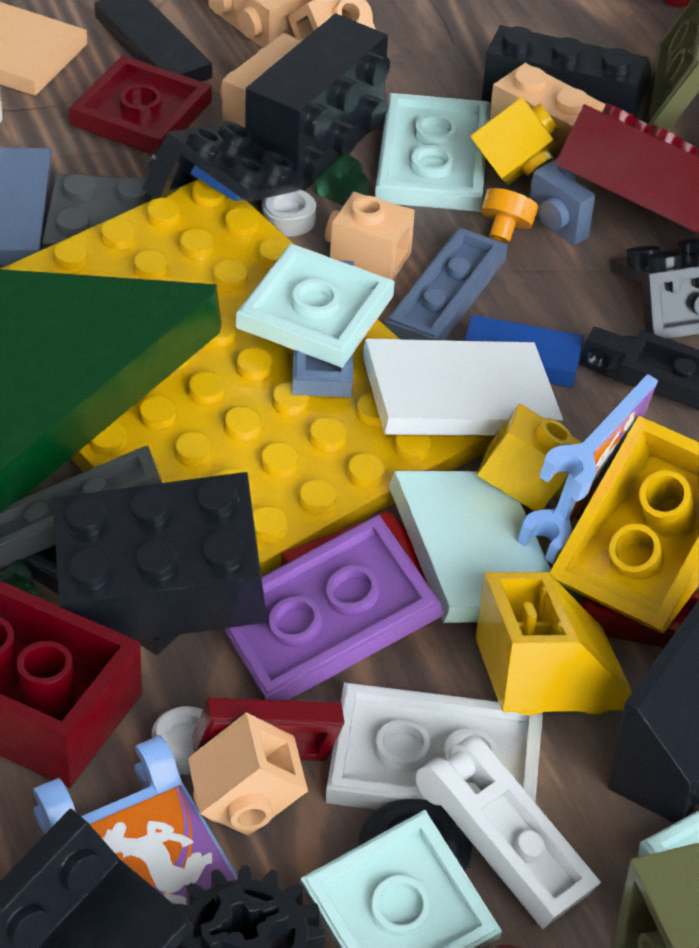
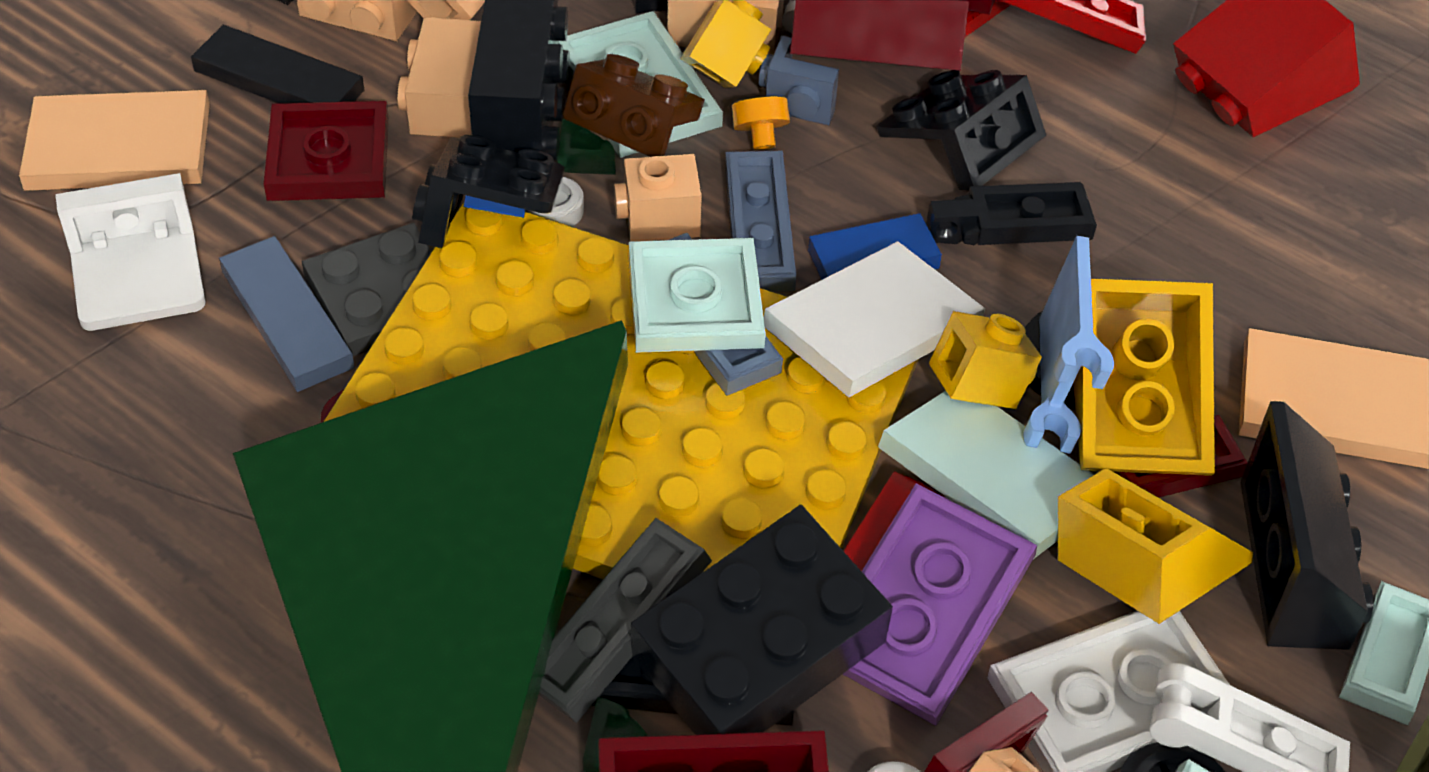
camera: 30 degrees left, 5 degrees up
(400, 155) = (629, 104): none -> reddish brown bracket

